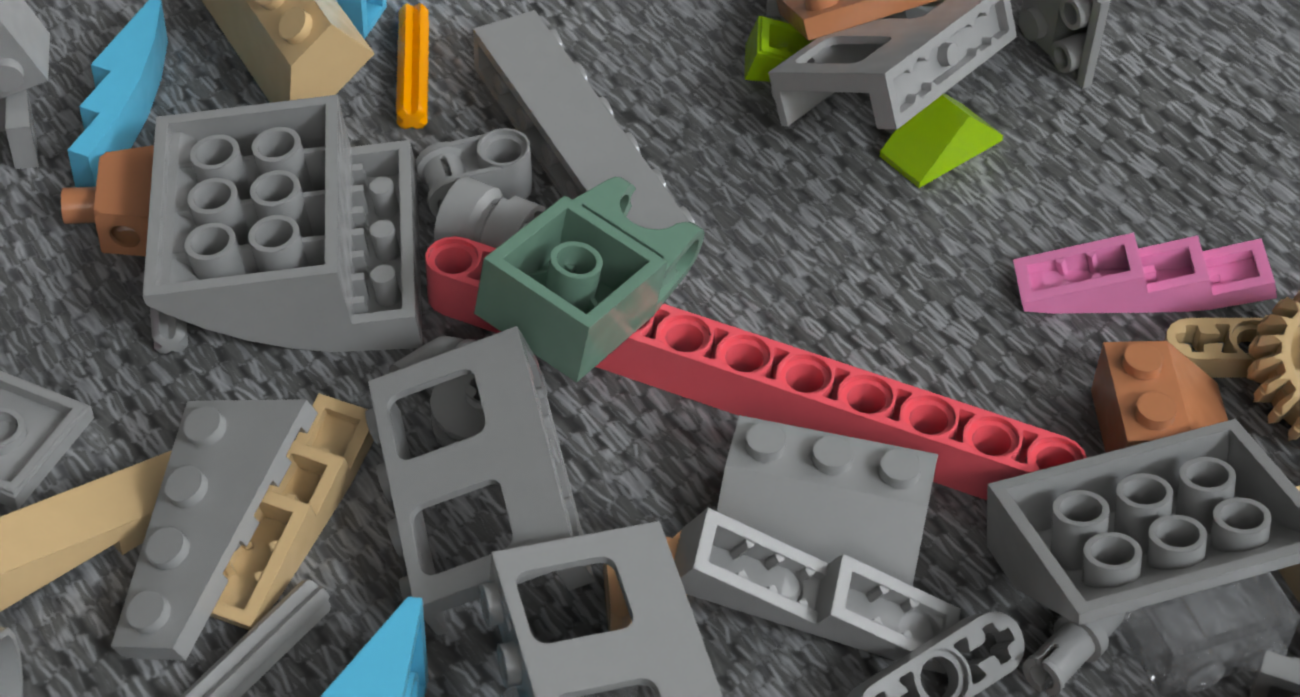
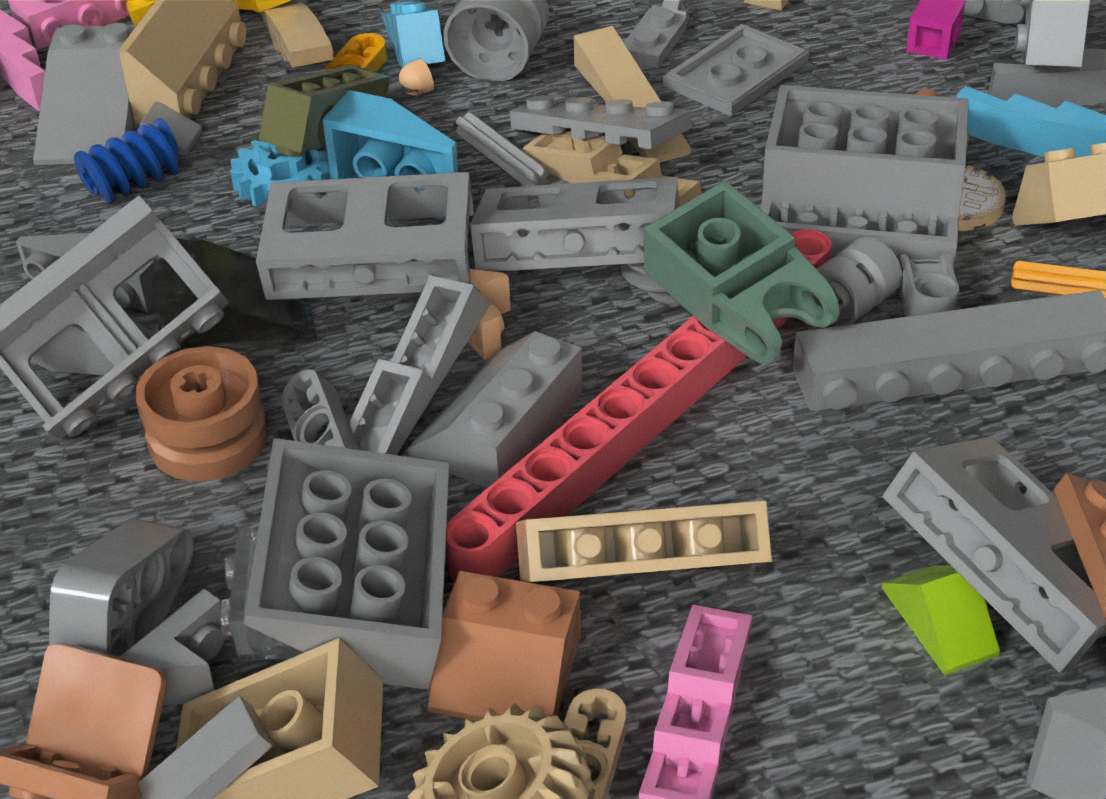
camera: 110 degrees right, 5 degrees down
(1000, 326) = (643, 541): none -> tan brick

